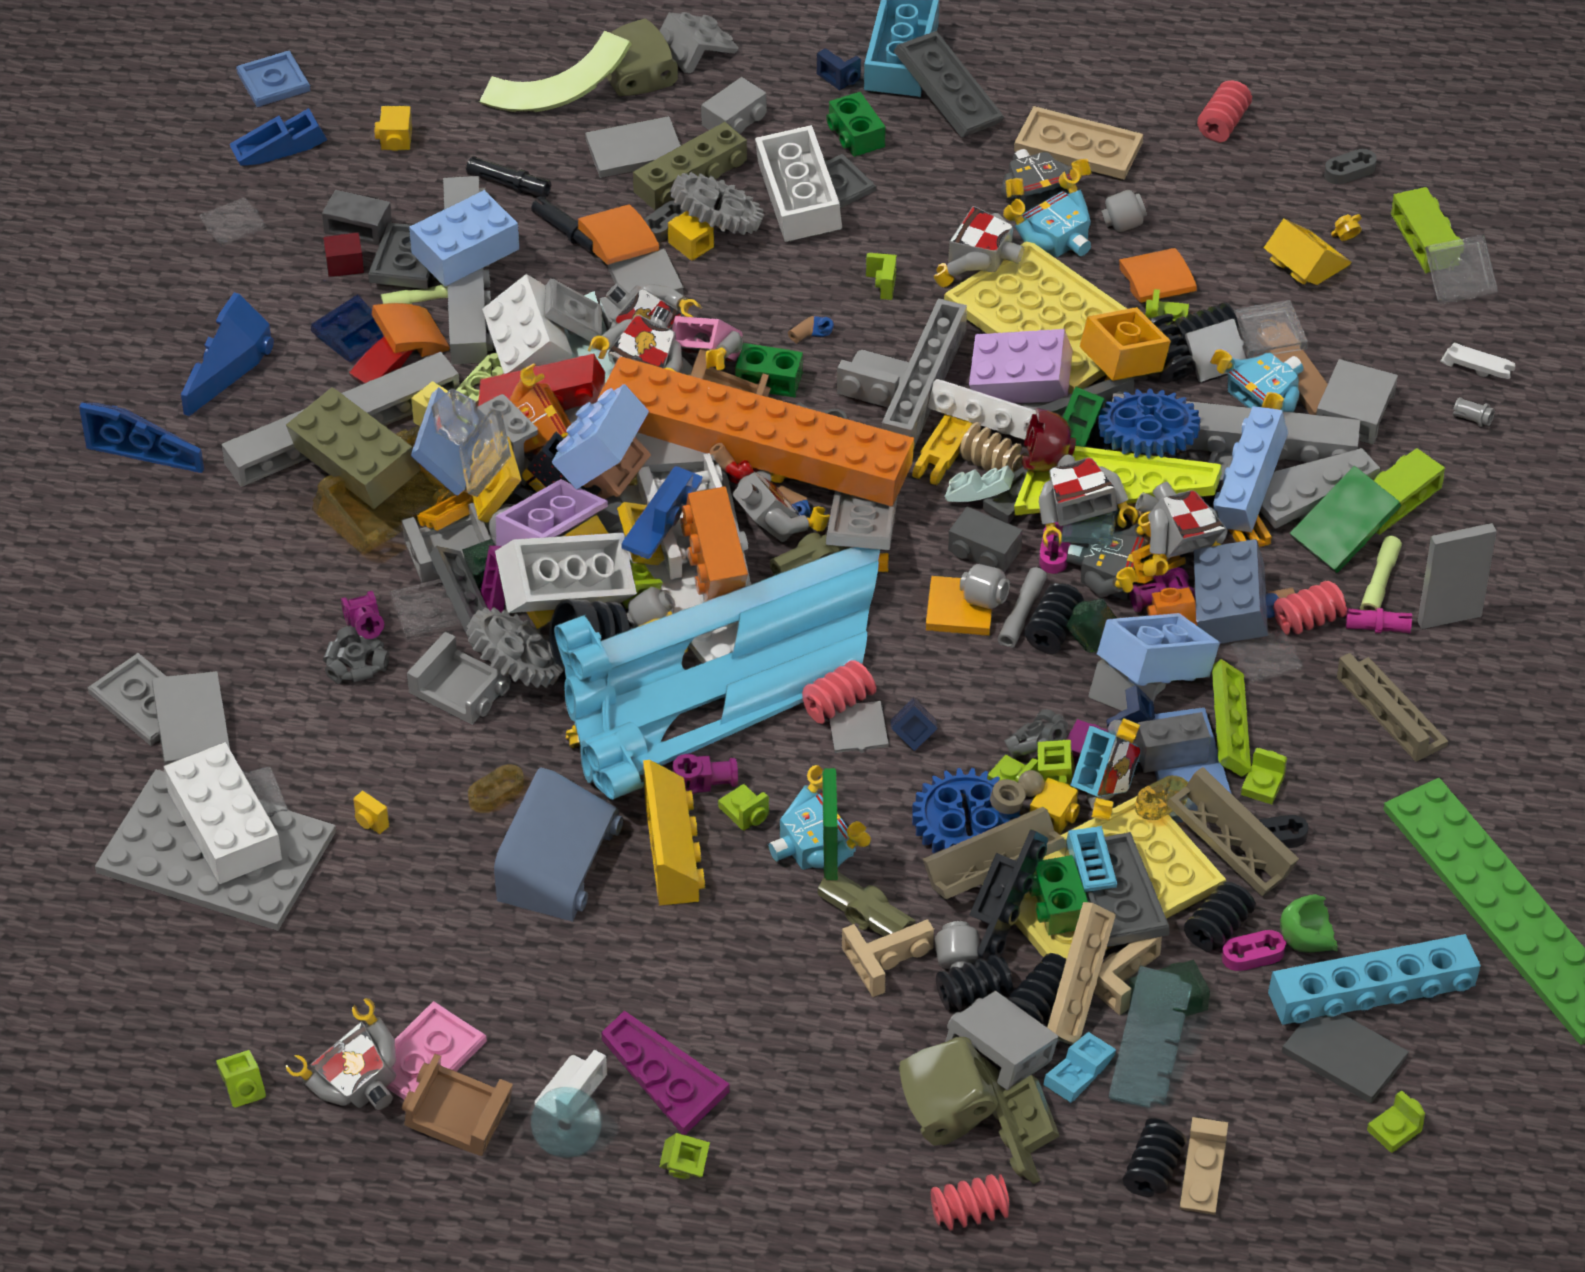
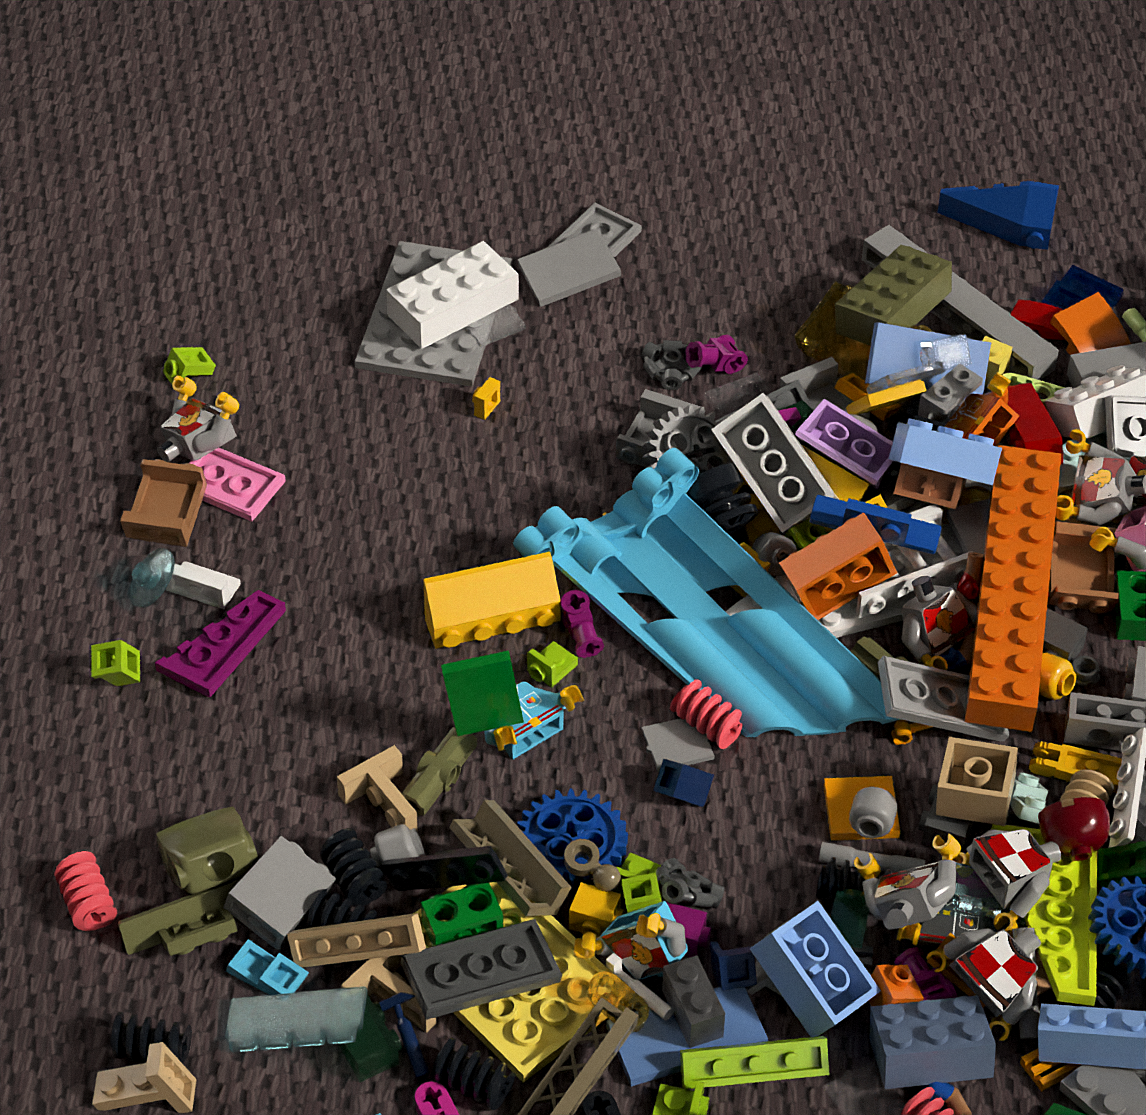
camera: 80 degrees right, 0 degrees up
(131, 436) = (892, 169): blue wedge -> none
(494, 787) = (535, 484): clear yellow beam -> none
(553, 846) = (463, 514): sand blue windscreen -> none
(981, 498) = (976, 781): none -> tan brick
(1086, 838) = (518, 943): medium azure slope -> none
(1102, 560) = (913, 893): none -> torso
(1119, 796) = (654, 1002): none -> white piece
(1170, 957) = (407, 1033): none -> dark blue piece

